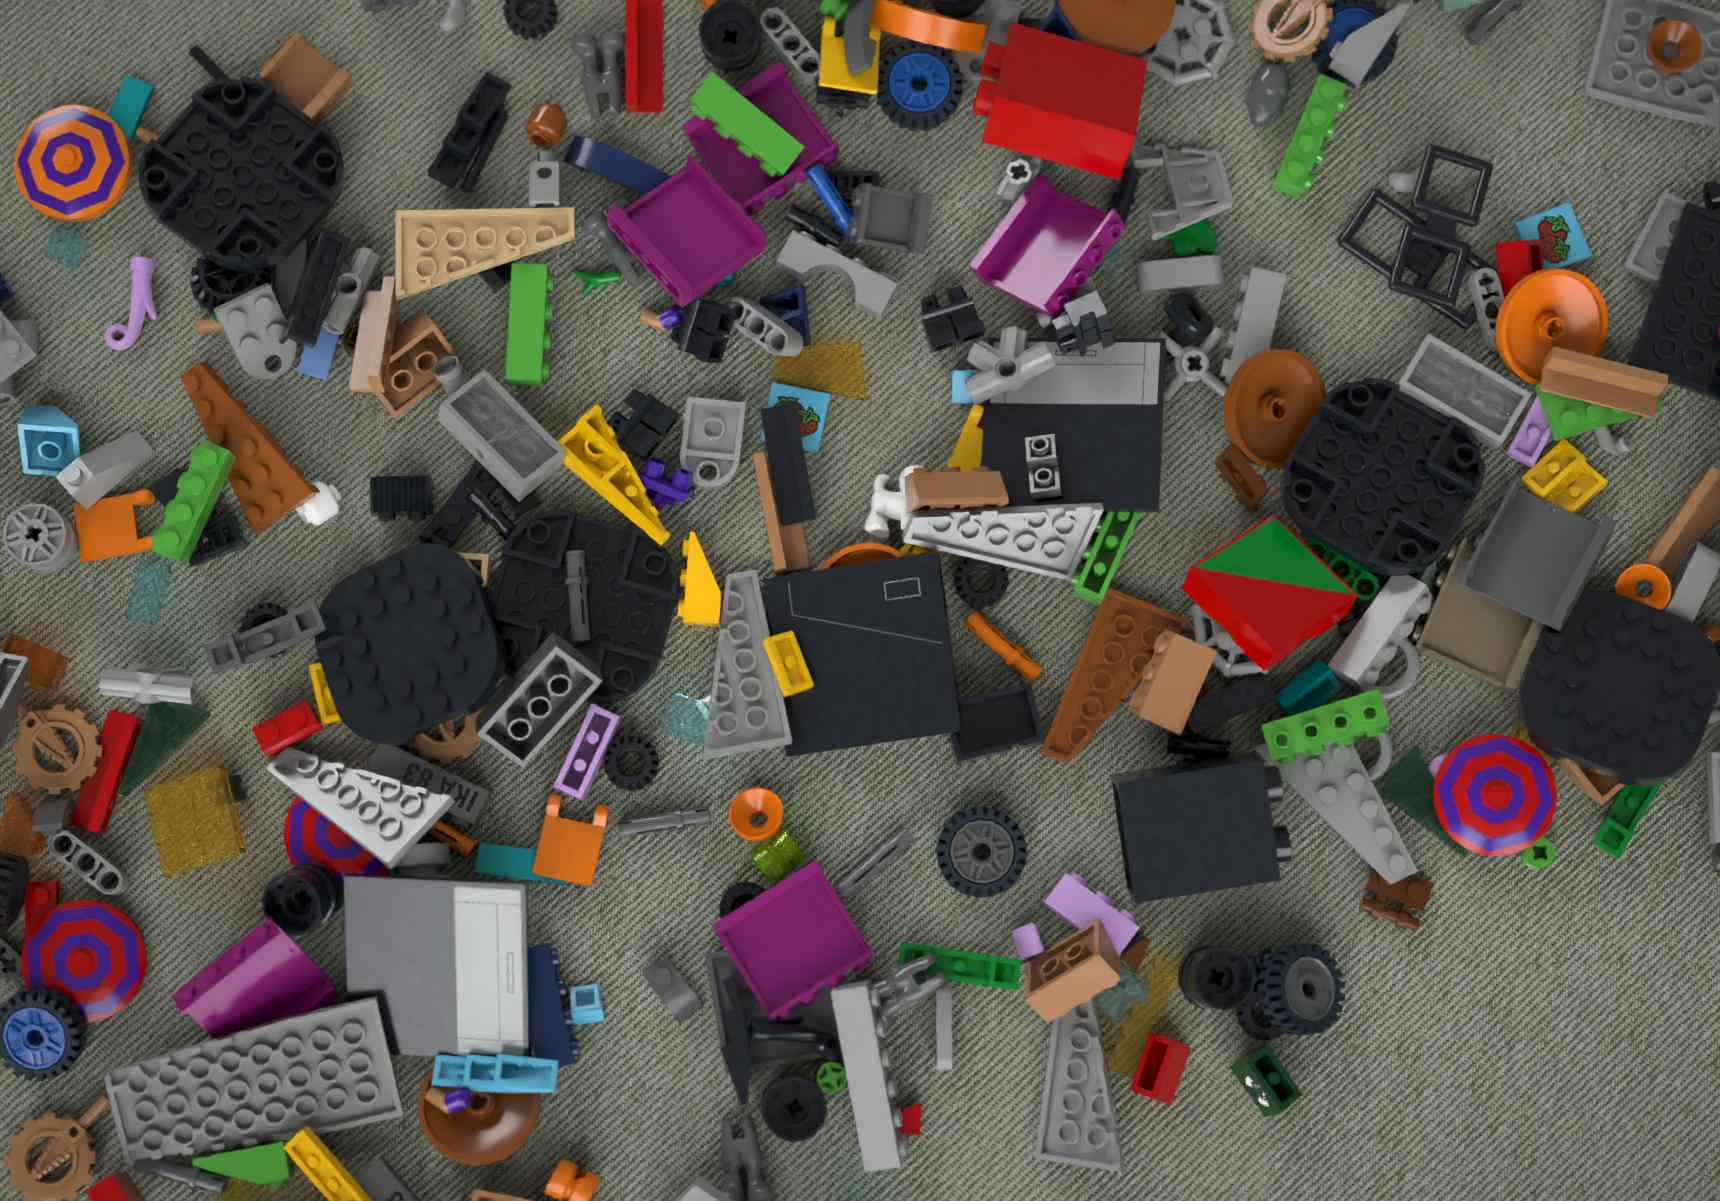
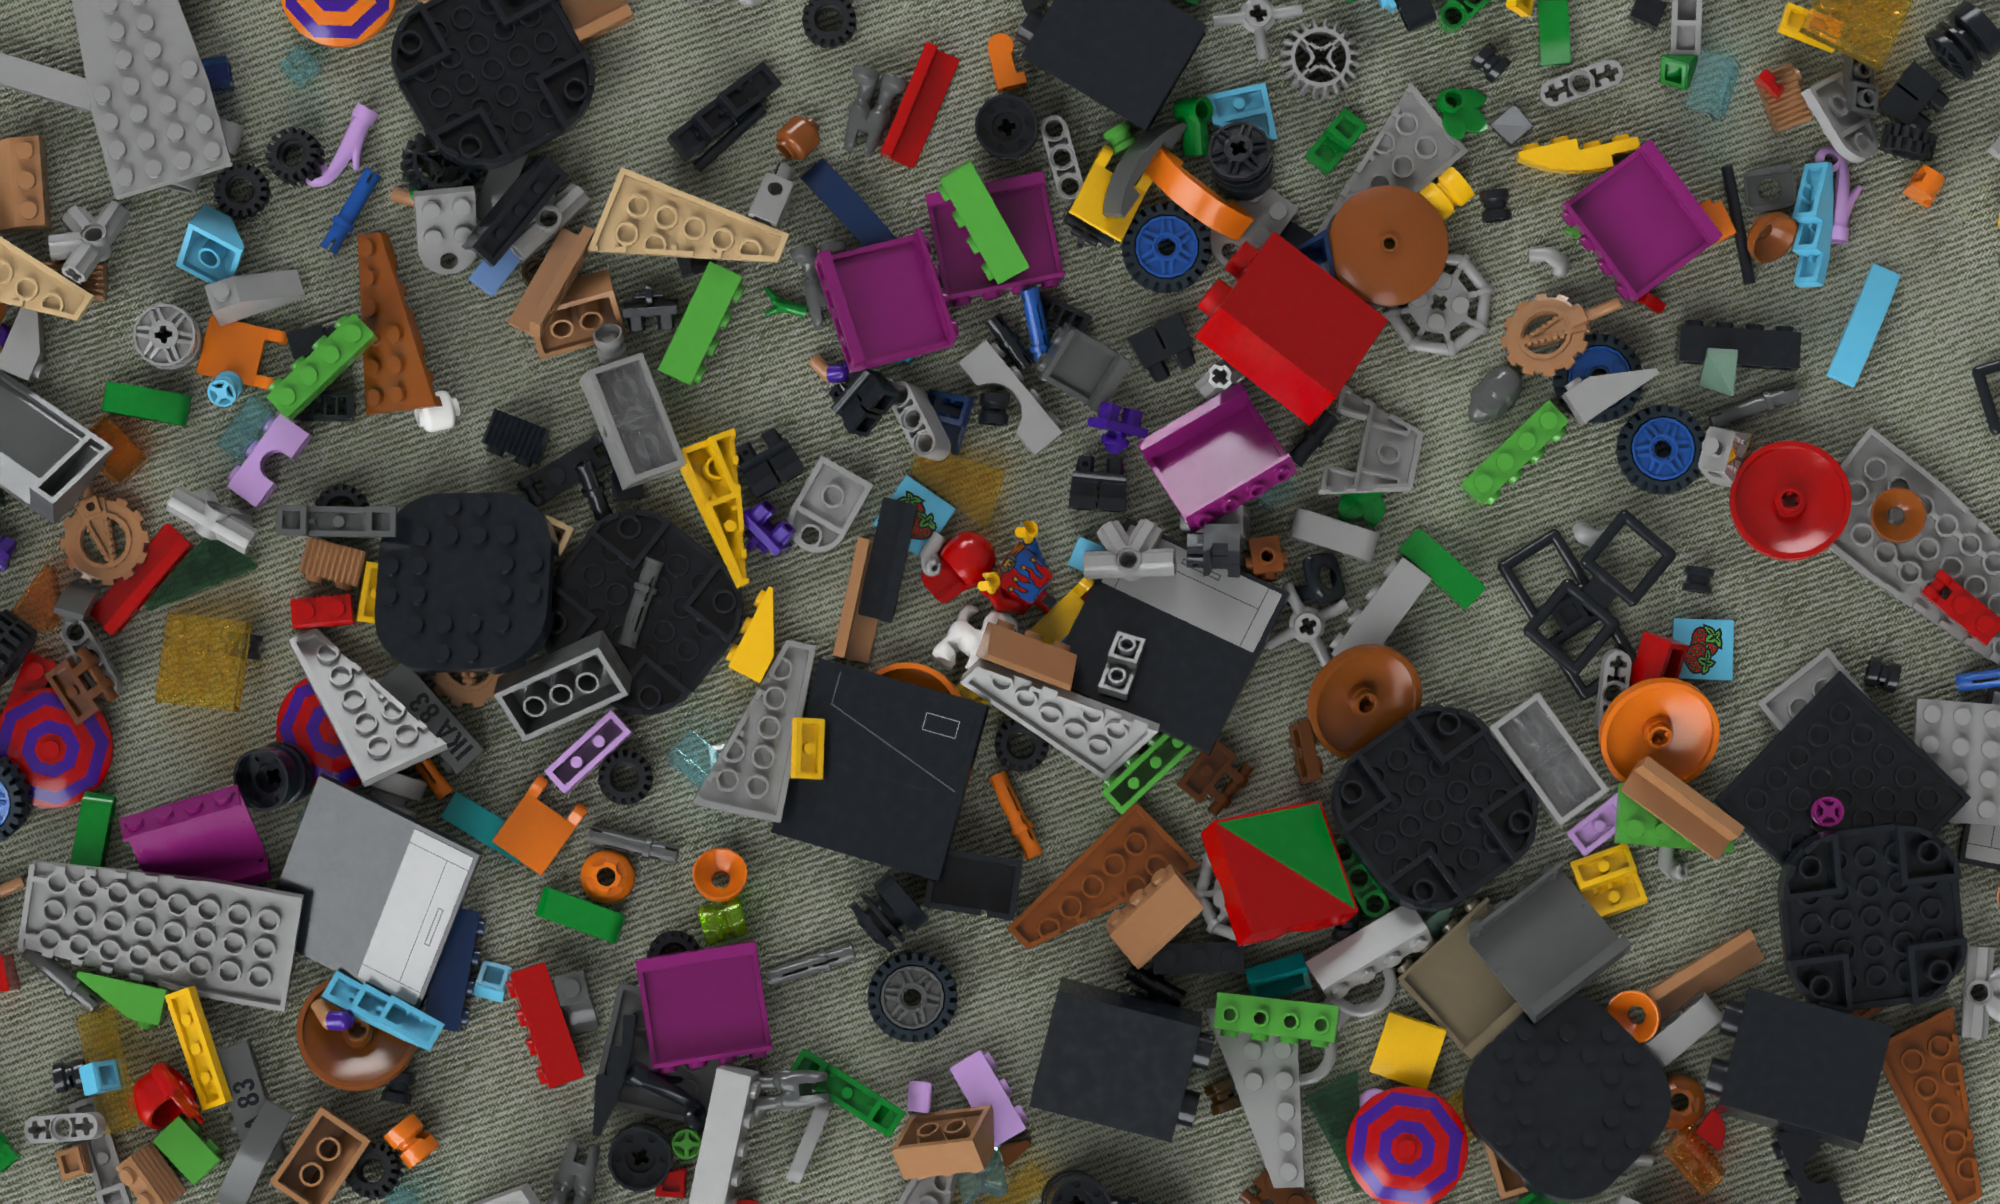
camera: 25 degrees right, 5 degrees up
(45, 608) = (146, 403): none -> green beam
(48, 364) = (229, 177): none -> black tyre
(81, 896) = (74, 690): none -> reddish brown plate
(103, 338) = (281, 148): none -> black tyre
(108, 568) = (218, 391): none -> medium azure wheel
(154, 1020) = (93, 829): none -> green beam
(163, 370) = (350, 211): none -> blue pin
(182, 586) = (250, 478): none -> lavender arch
(279, 680) = (334, 563): none -> medium nougat brick
(464, 338) = (638, 310): none -> black hips
(540, 1142) = (398, 1089): none -> black wheel
(642, 906) = (580, 914): none -> green beam
(653, 1023) = (545, 1025): none -> red brick
(664, 873) = (623, 872): none -> orange piece
(824, 445) = (929, 555): none -> light grey arm
(826, 290) = (997, 402): none -> black wheel
(835, 1121) = (674, 1184): none -> red tile
(862, 427) = (963, 563): none -> red piece
(915, 428) = (1020, 577): none -> torso
(927, 782) = (888, 912): none -> black wheel
(944, 260) = (1107, 420): none -> dark purple hips
(952, 170) = (1151, 353): none -> black hips
(1129, 318) = (1268, 549): none -> dark orange brick
(1160, 532) = (1207, 771): none -> reddish brown plate
(1298, 264) = (1444, 569): none -> green slope
(1304, 822) = (1222, 1096): none -> dark brown wheel
(1439, 58) = (1637, 452): none -> wheel
(1453, 708) = (1407, 1050): none -> yellow slope
(1497, 55) = (1723, 454): none -> light grey torso
(1521, 179) = (1698, 579): none -> black wheel
(1573, 73) = (1790, 500): none -> red dish

